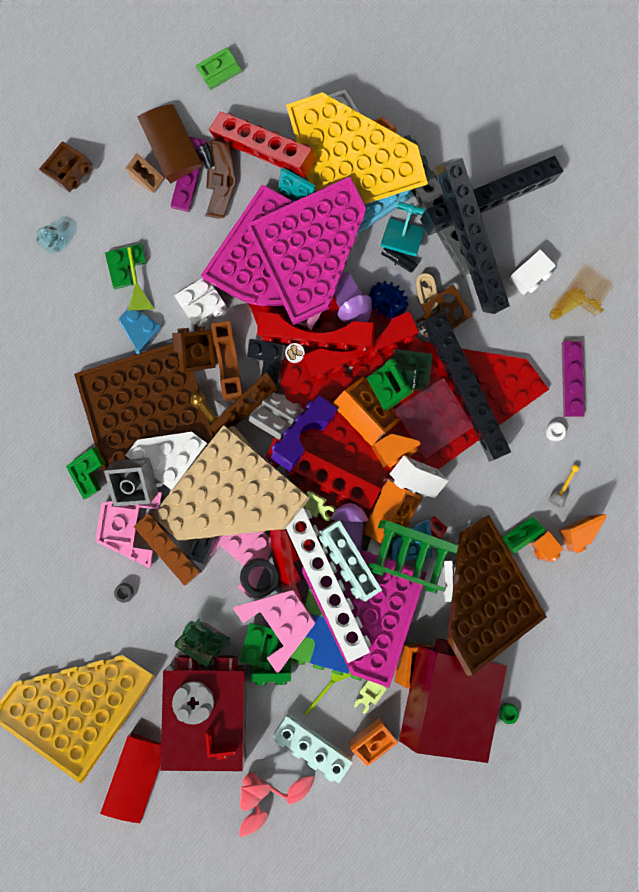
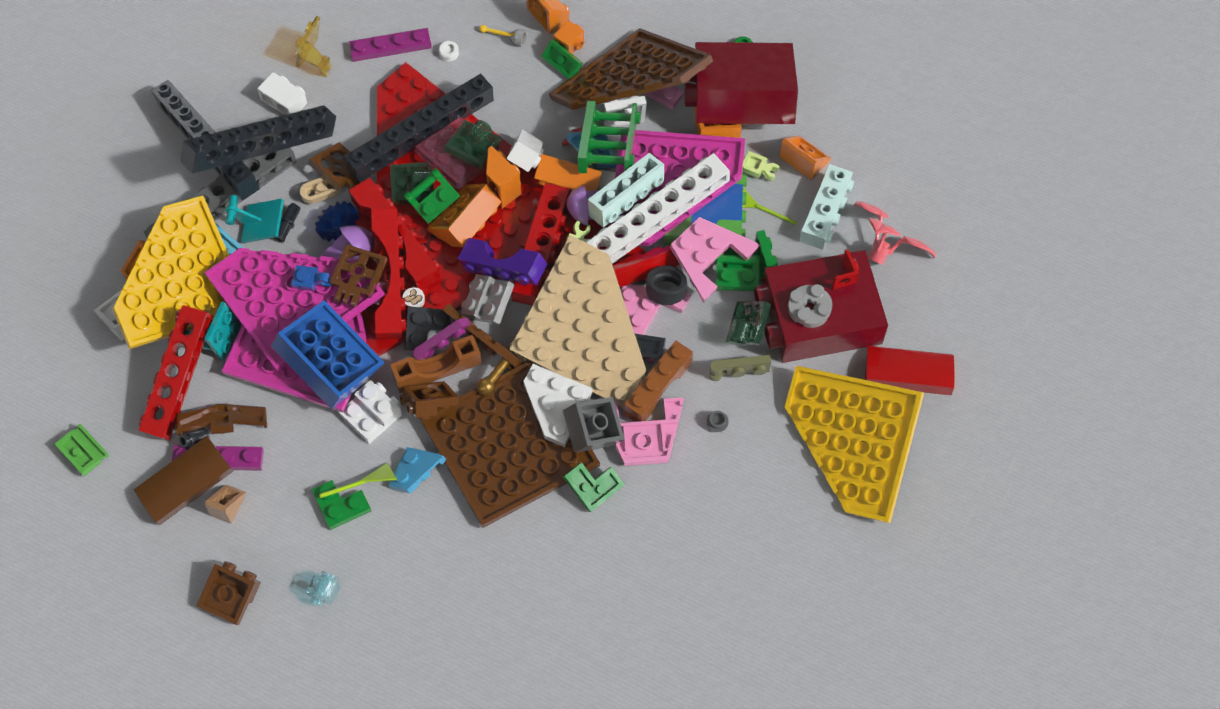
camera: 100 degrees left, 20 degrees down
(167, 623) = (739, 367): none -> olive plate
(242, 367) = (441, 339): none -> magenta plate
(244, 267) = (327, 354): none -> blue slope
(299, 294) = (351, 289): none -> reddish brown piece
(319, 259) = (308, 277): none -> blue plate
(433, 430) = (472, 143): none -> clear green plate

